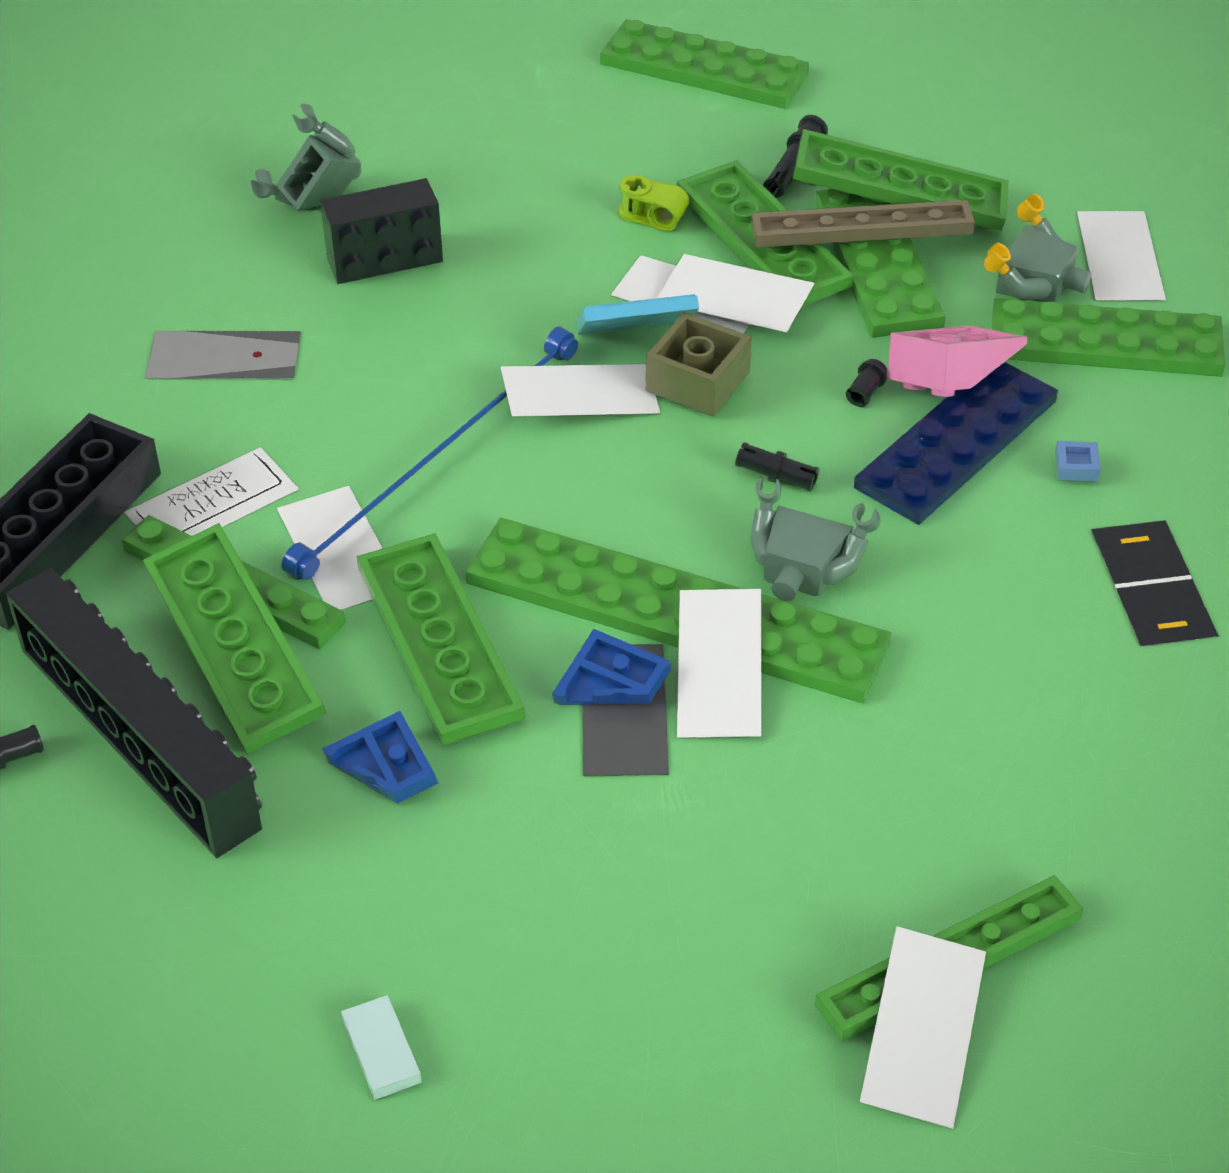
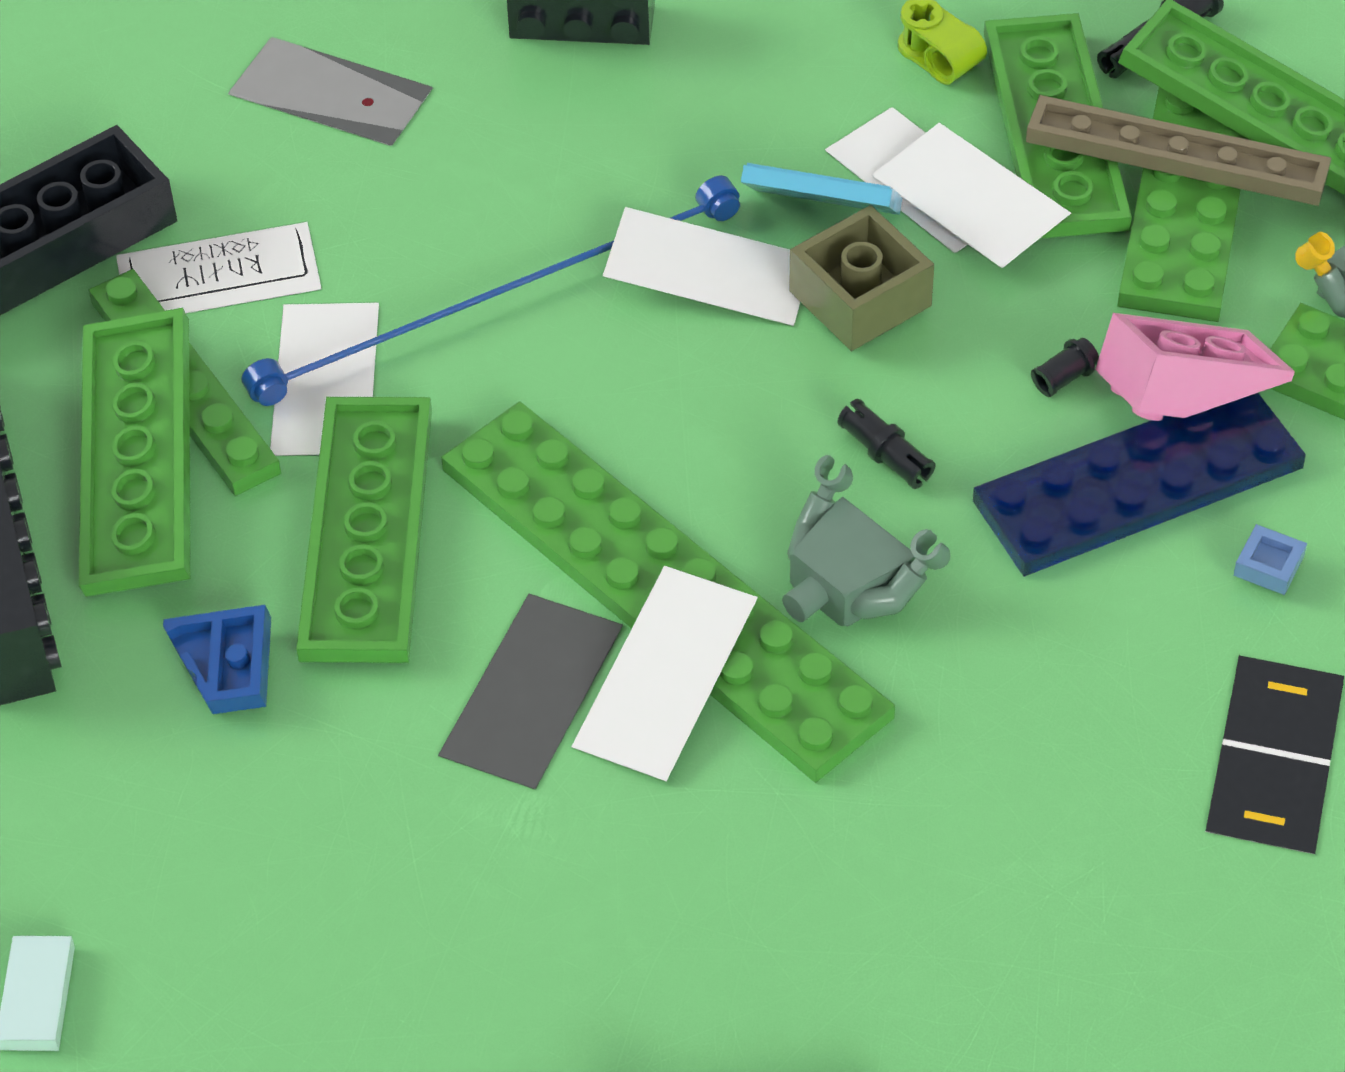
camera: 25 degrees right, 5 degrees up
(611, 673) = (531, 642): blue wing -> none

